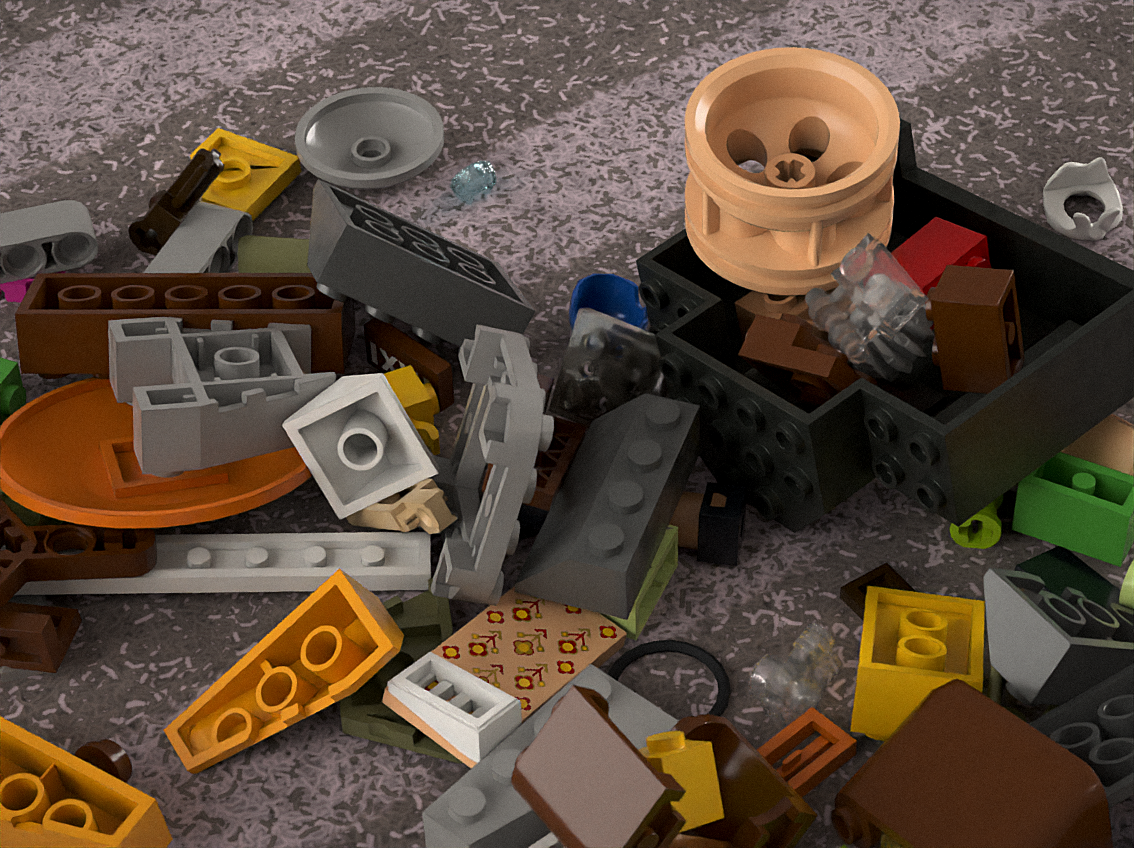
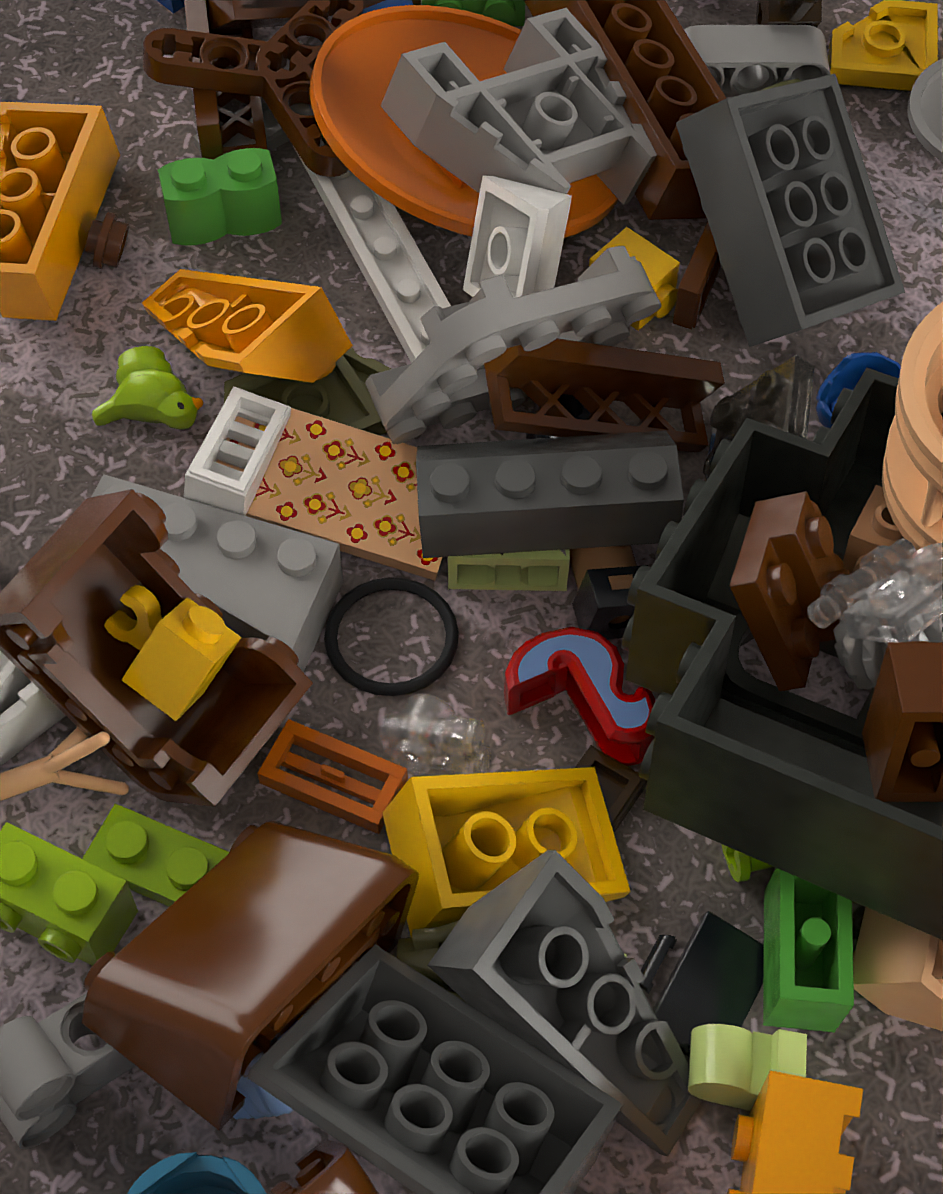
camera: 65 degrees right, 15 degrees up
(111, 662) = (220, 196): none -> bright green brick
(315, 780) = (148, 392): none -> lime animal
(795, 561) = (593, 678): none -> red animal

